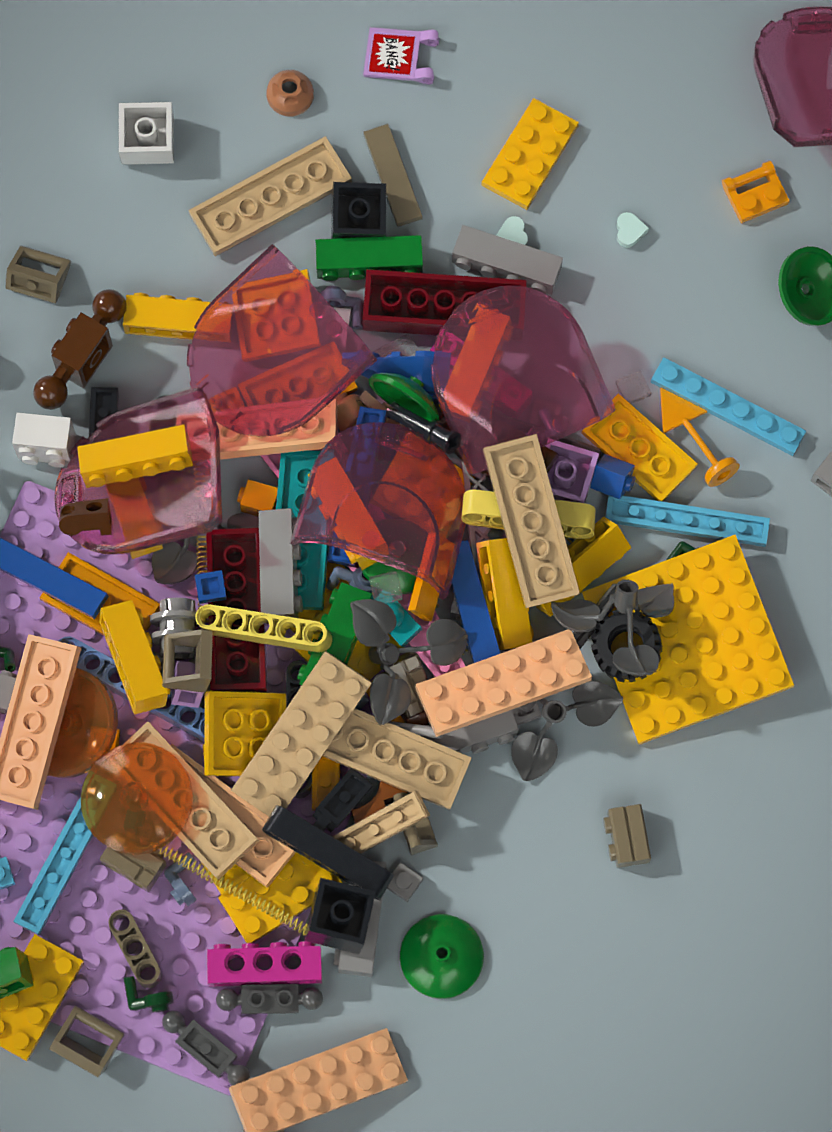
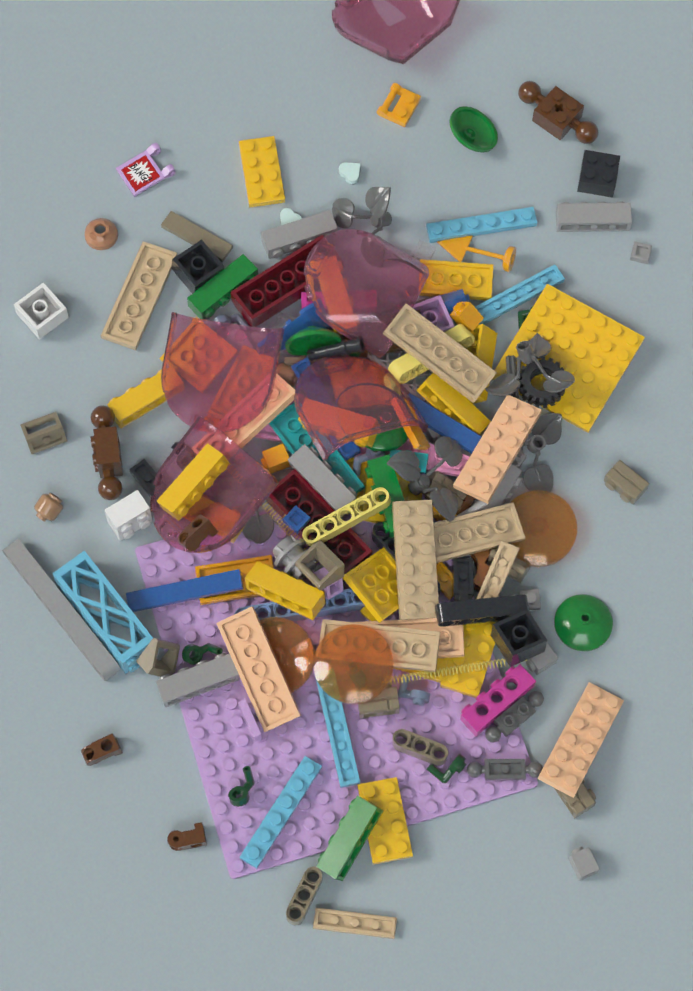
camera: 40 degrees left, 5 degrees down
(79, 1054) = (438, 829): dark tan tile -> none
(386, 587) = (393, 444): clear plate -> none
(490, 814) = (547, 528): none -> clear orange dish
(607, 500) = (466, 314): none -> light orange brick
(612, 289) = (376, 200): none -> dark grey plant

